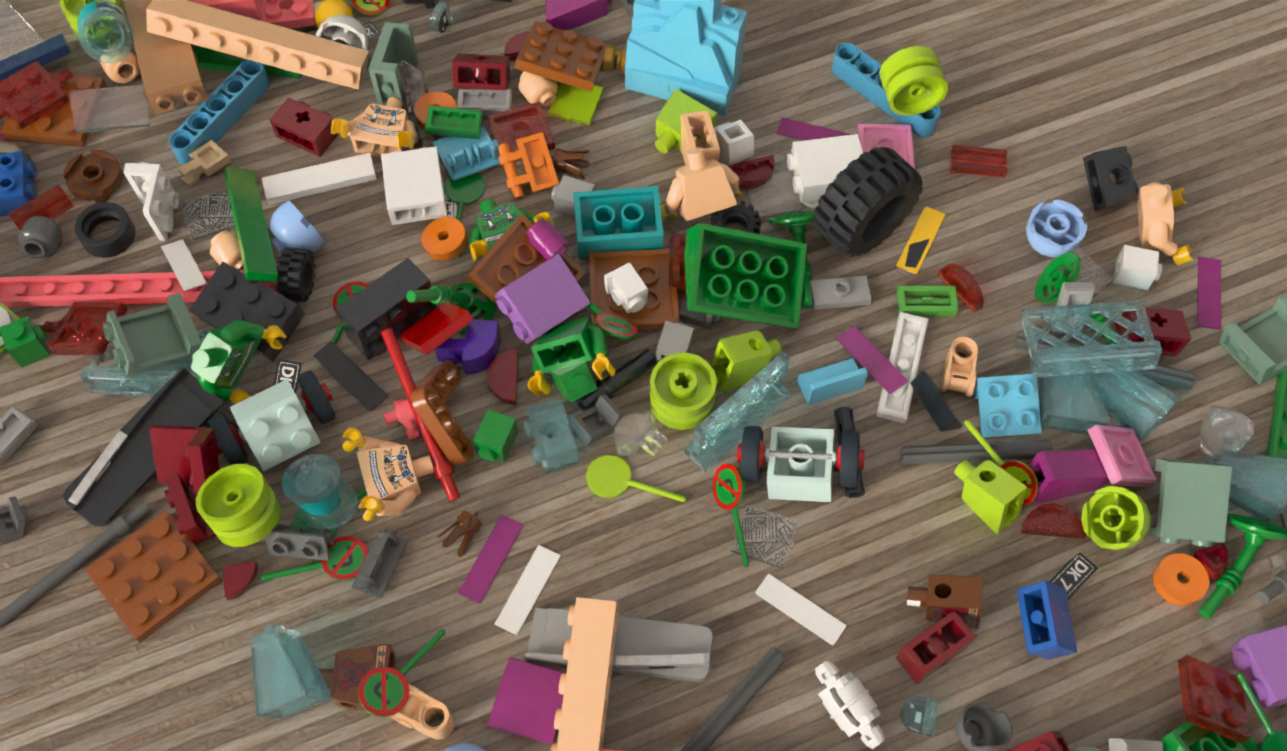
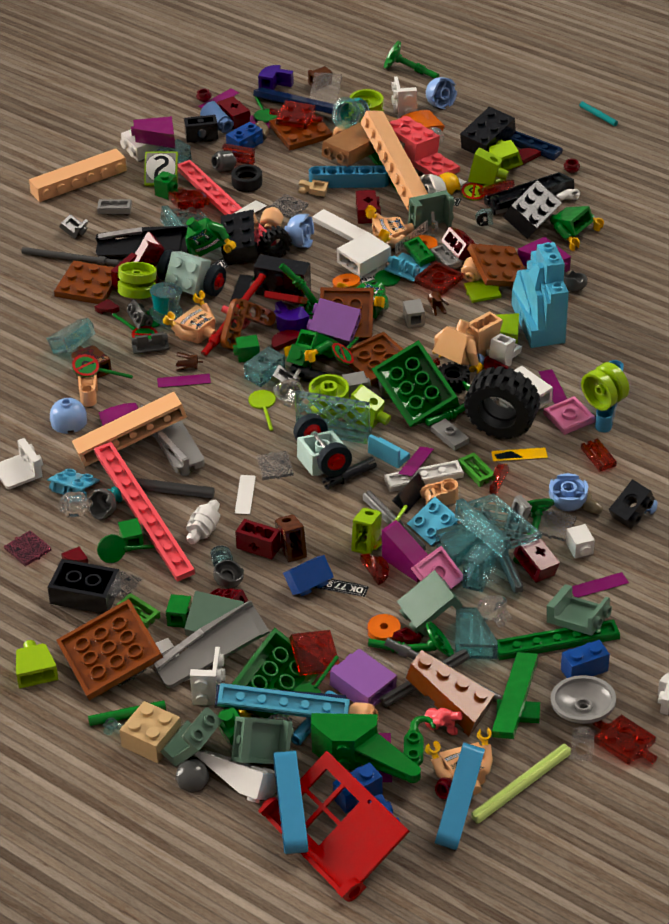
camera: 60 degrees right, 20 degrees down
(95, 188) = (273, 160): reddish brown plate -> none
(109, 108) = (311, 142): clear piece -> none
(153, 336) = (195, 207): sand green panel -> none
(155, 193) = (274, 181): white bracket -> none
(250, 225) = (282, 214): green tile -> none
(527, 590) = (186, 398): white sticker -> none
(536, 162) = (421, 289): orange plate -> none
(547, 239) = (368, 304): magenta brick -> none
(618, 220) = (407, 326): teal slope -> none
(626, 288) = (369, 348): white brick -> none
(728, 493) = (282, 439): green piece -> none
(1116, 518) = (394, 582): lime cylinder -> none
(1157, 220) = (624, 532): light nougat torso -> none

